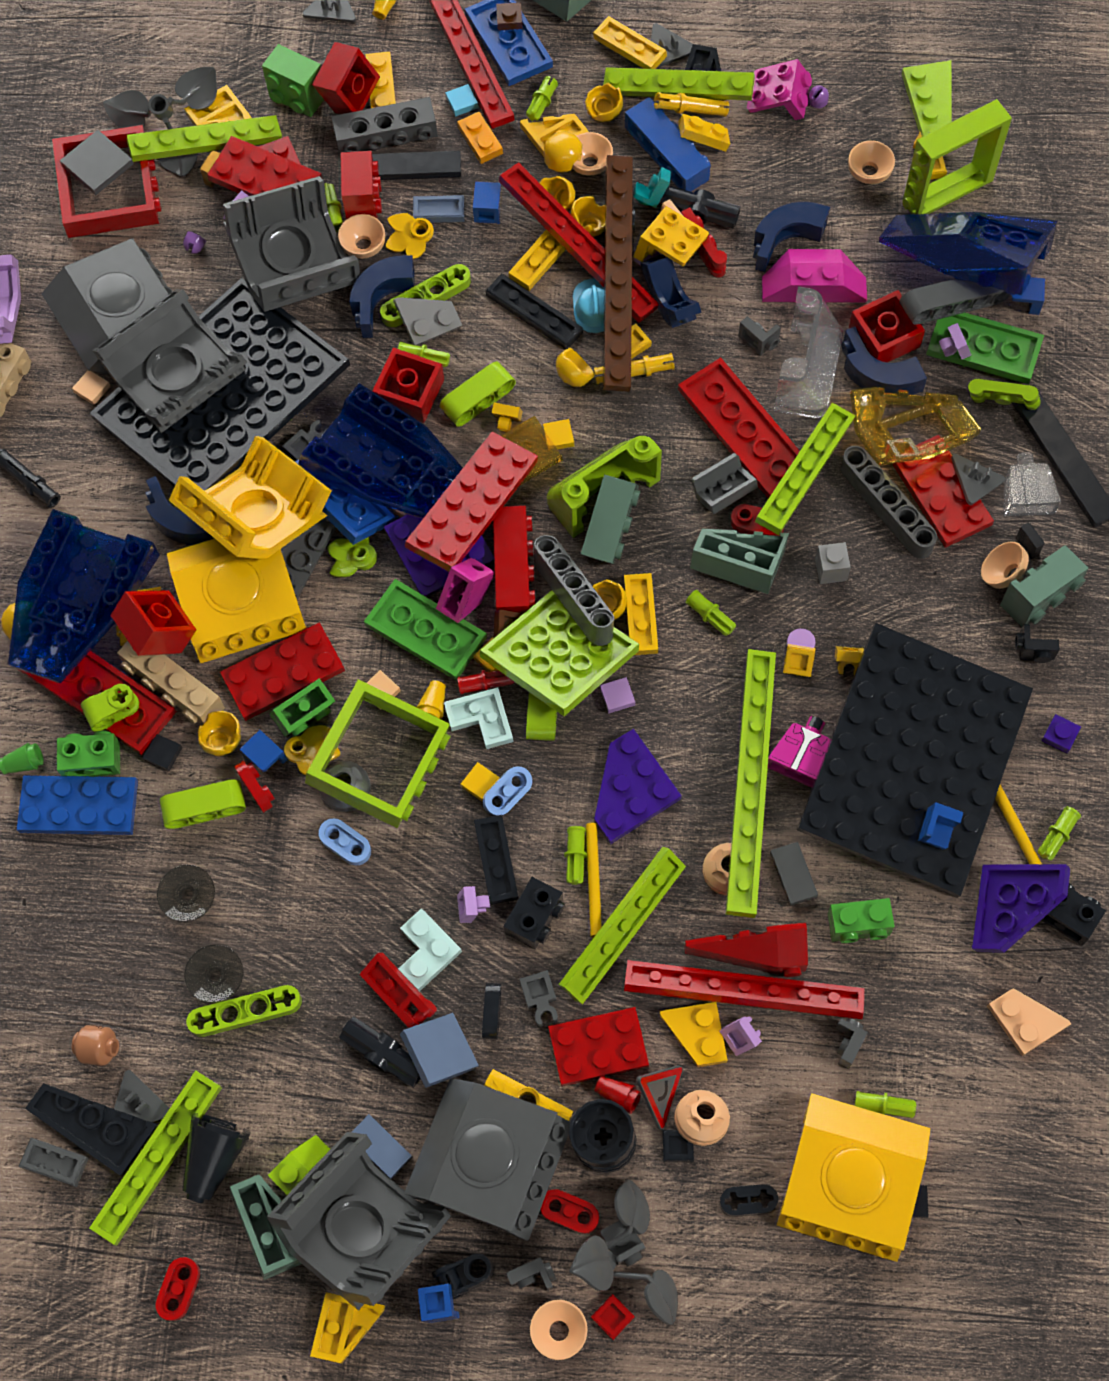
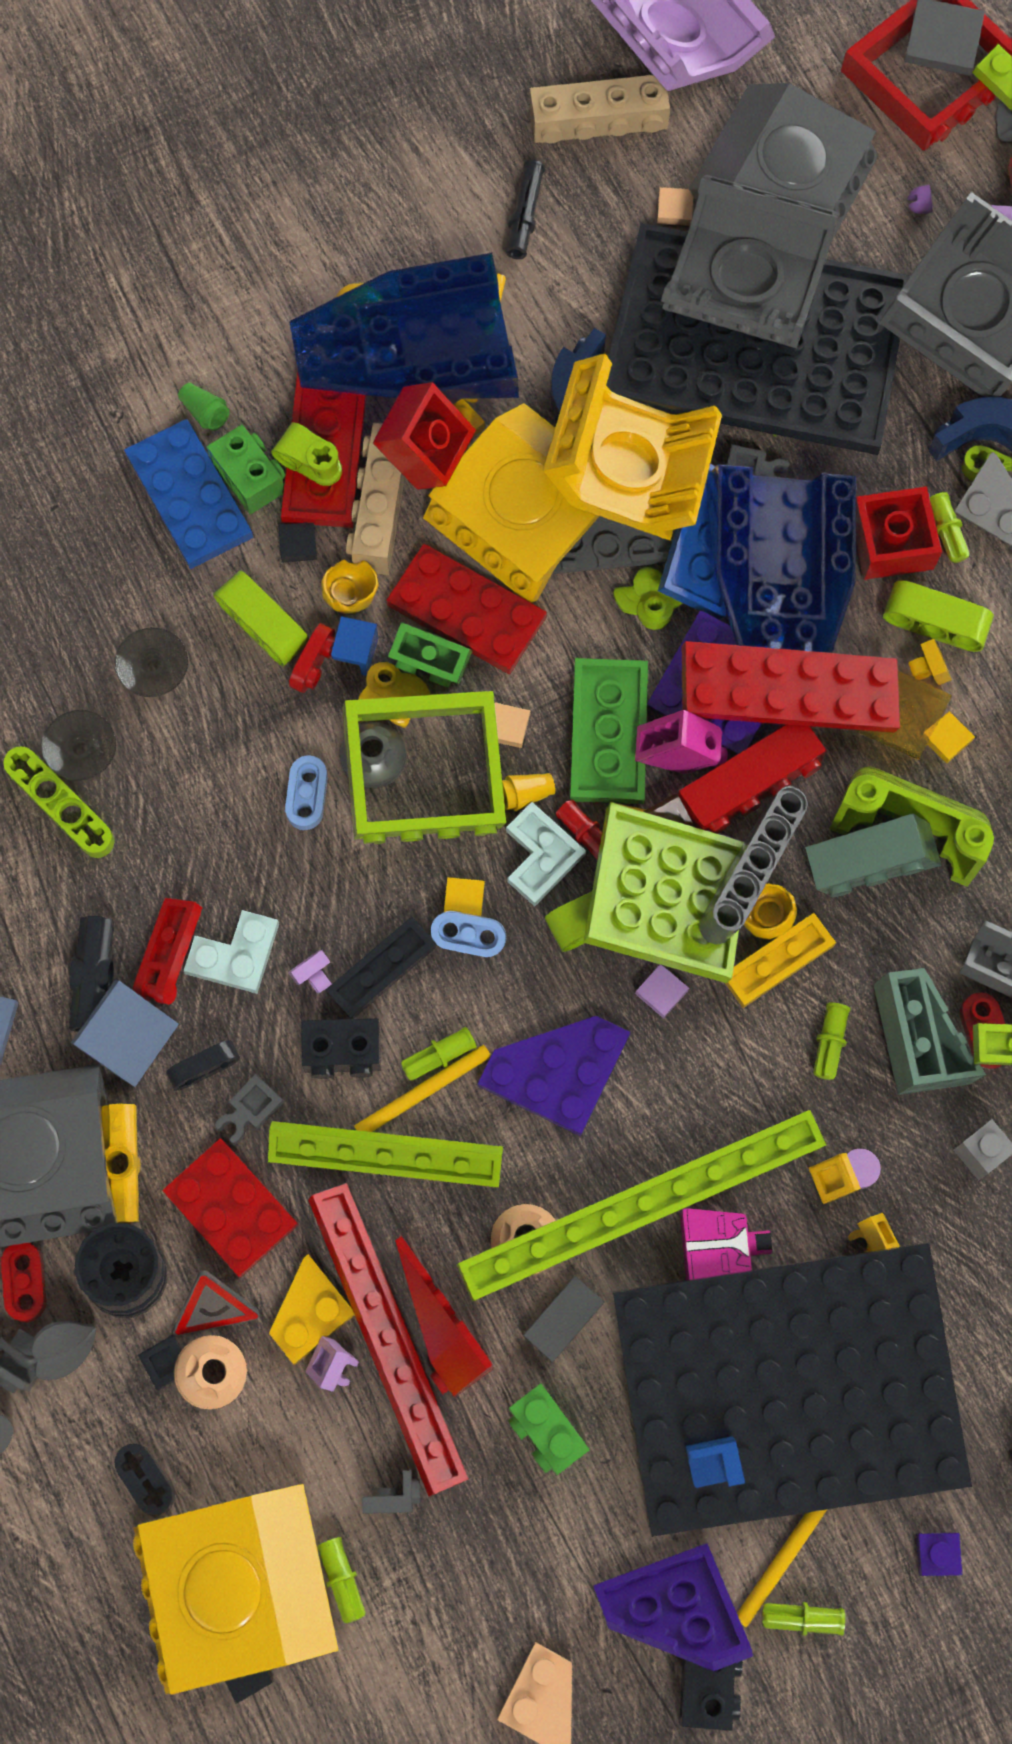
camera: 55 degrees right, 5 degrees up
(619, 1092) = (184, 1260): red cone -> none

